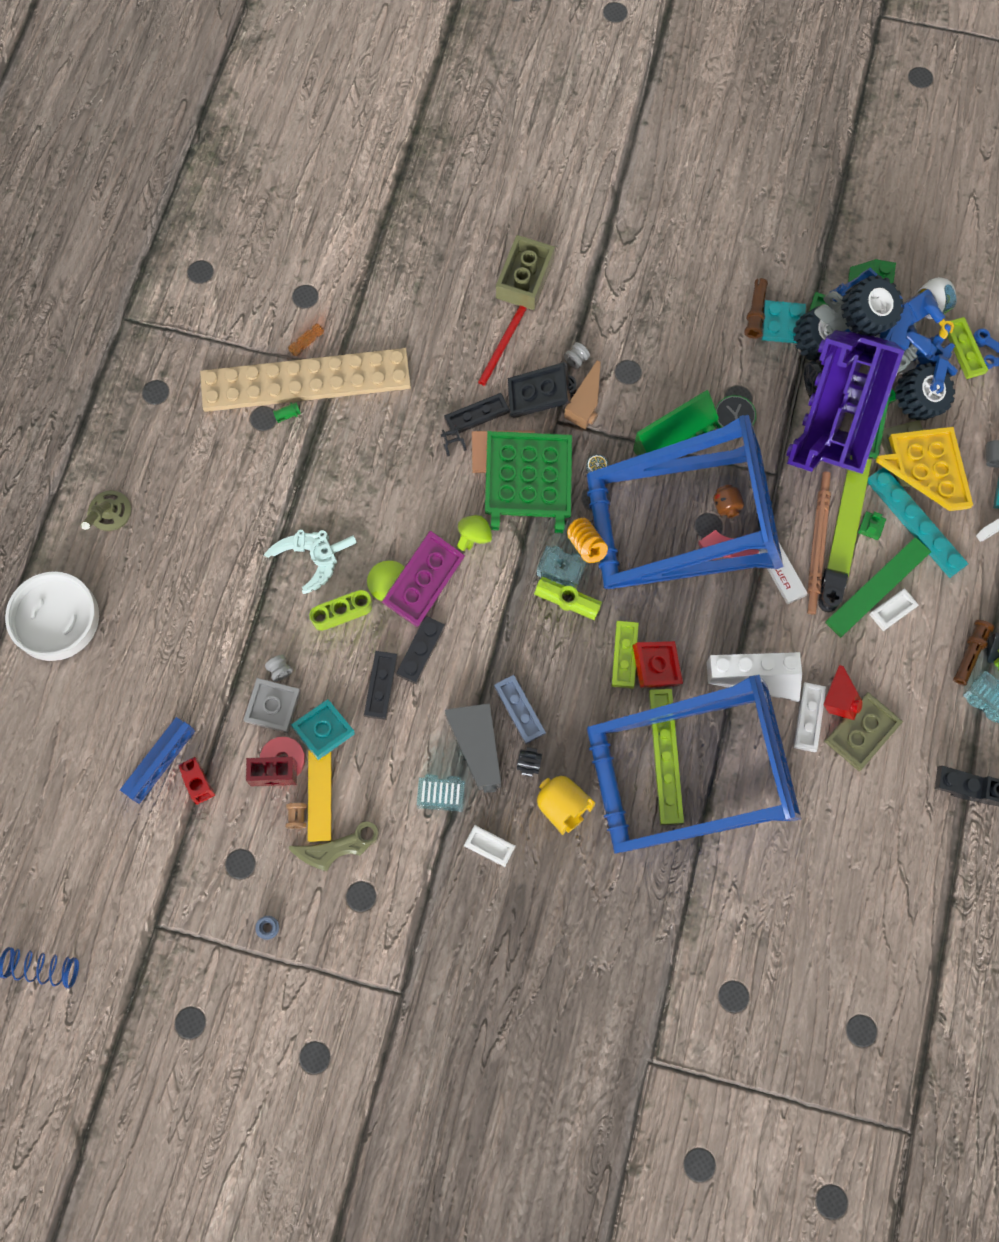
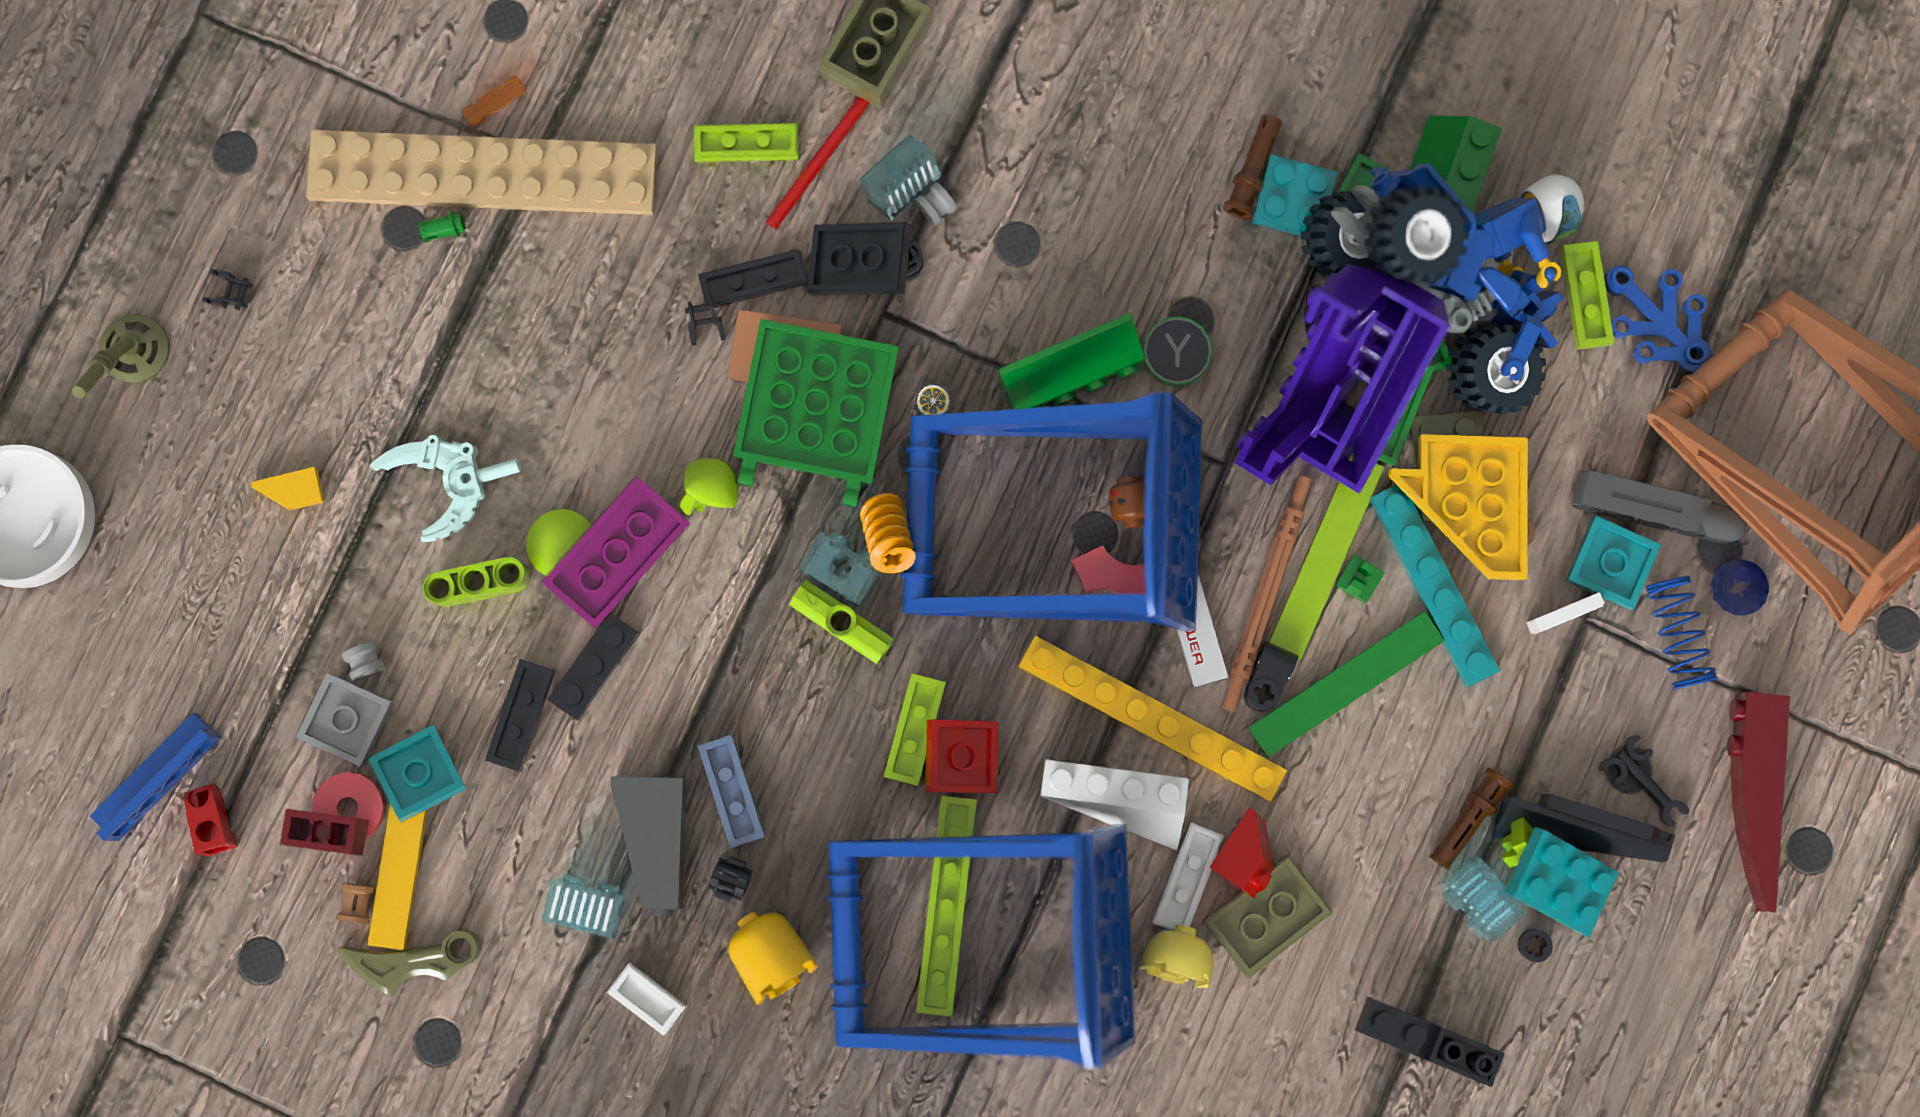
camera: 10 degrees right, 10 degrees up
(161, 474) = (223, 301): none -> black piece
(218, 575) = (293, 489): none -> yellow tile
(260, 927) = (276, 1071): sand blue plate -> none
(458, 340) = (746, 142): none -> lime tile
(554, 342) = (900, 177): none -> clear light blue brick
(585, 400) = (933, 289): medium nougat slope -> none
(767, 626) = (1152, 719): none -> yellow plate
(817, 762) = (1179, 957): none -> light yellow cylinder
(893, 609) = (1362, 725): white tile -> none

